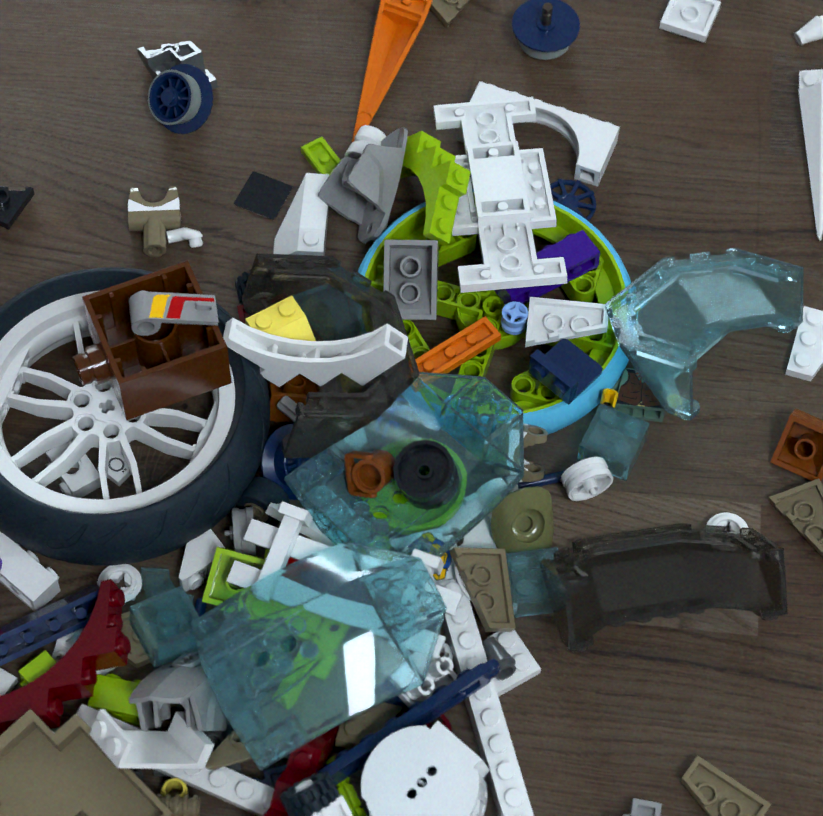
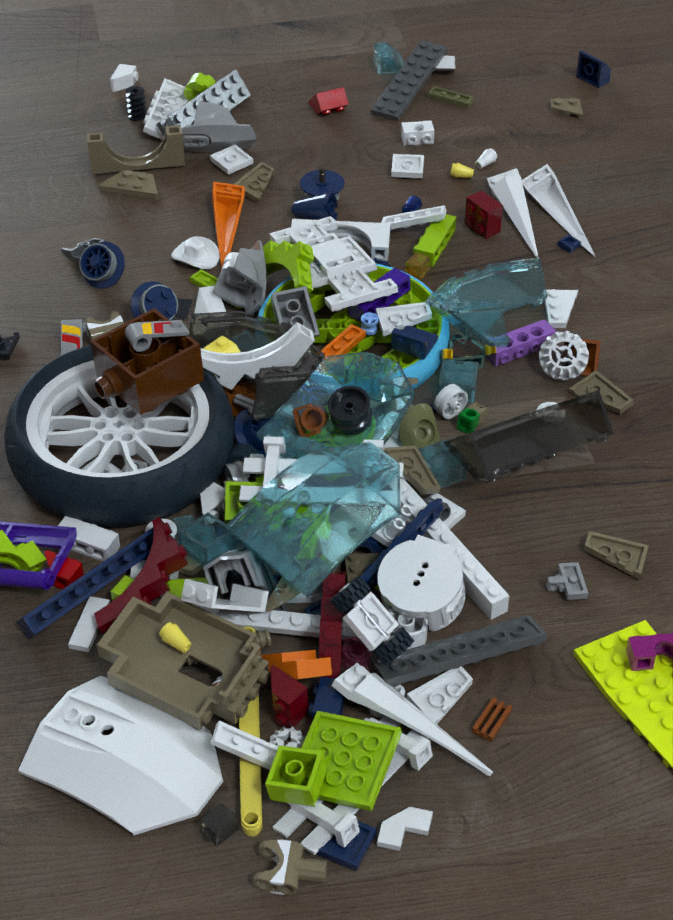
camera: 15 degrees left, 15 degrees down
(67, 785) = (175, 637): none -> light yellow cone
(101, 221) = (72, 334): none -> light grey door
(229, 194) = (154, 295): none -> dark blue piece
(325, 105) = (197, 253): none -> white hat
(524, 69) = (316, 207): none -> dark blue cone
(610, 511) = (472, 417): none -> green leg
(632, 215) = (417, 266): none -> clear yellow brick
(658, 125) = (415, 217): none -> white plate
(666, 98) = (412, 204): none -> clear blue brick
(678, 168) = (436, 238): none -> lime brick
(740, 387) = (523, 342): none -> medium lavender brick
(763, 145) = (483, 214): none -> dark red brick
(763, 425) = (576, 365): none -> white gear
(766, 46) = (461, 171): none -> light yellow cone

